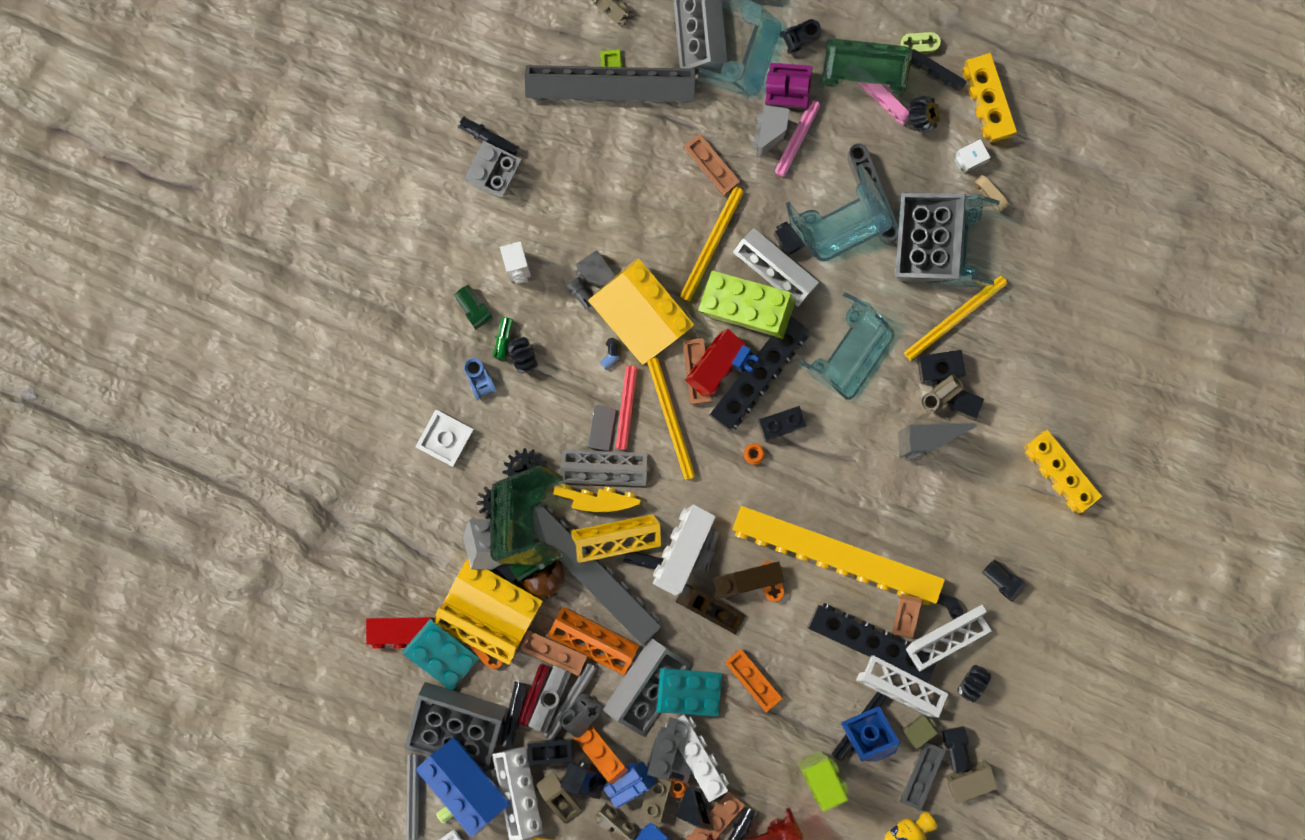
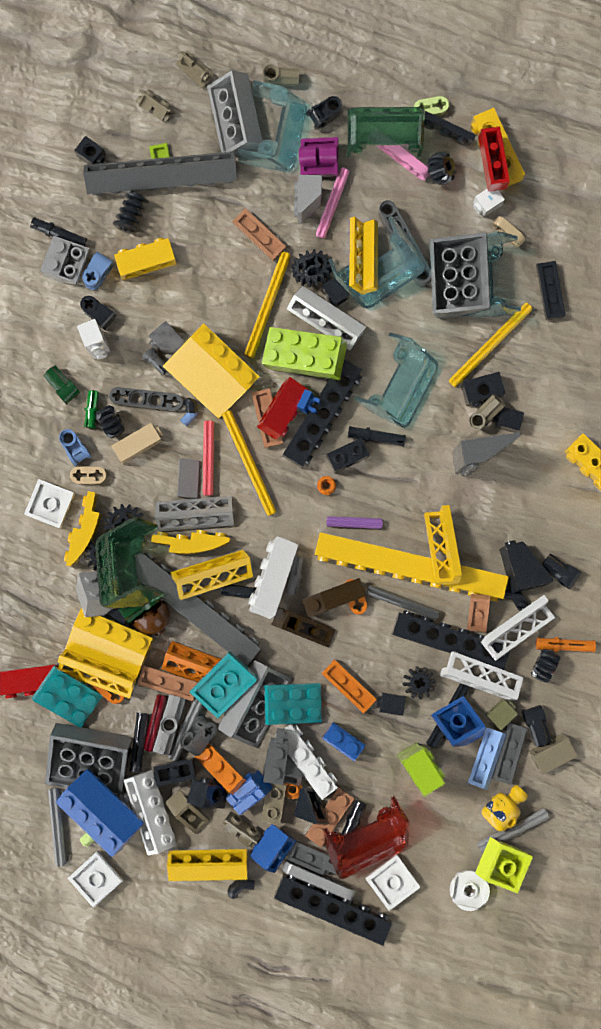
camera: 10 degrees left, 0 degrees up
(475, 481) = (80, 538): none -> yellow slope
(490, 417) = (88, 480): none -> tan beam
(523, 232) = (99, 312): none -> black piece
(528, 181) = (99, 268): none -> medium blue piece
(532, 42) = (87, 145): none -> black brick
(550, 382) = (137, 443): none -> tan brick
(563, 338) = (146, 397): none -> dark grey beam
(570, 123) = (129, 212): none -> black piece
(581, 177) = (145, 258): none -> yellow brick
(615, 662) = (223, 684): none -> teal plate
(740, 740) = (343, 741): none -> blue brick
(765, 209) = (312, 268): none -> black gear
(780, 498) = (354, 522): none -> medium lavender axle
(798, 705) = (391, 703): none -> black brick
(819, 406) = (376, 436): none -> black pin
(824, 594) = (403, 602): none -> dark grey axle
(827, 202) = (366, 255): none -> yellow fence
(832, 693) = (420, 689): none -> black gear
(883, 533) = (449, 543): none -> yellow fence
(897, 778) = (486, 758): none -> light blue plate
(962, 571) = (523, 567): none -> black slope
(977, 659) = (565, 644): none -> orange pin
(983, 112) = (494, 159): none -> red brick
(1030, 264) = (550, 290): none -> black plate

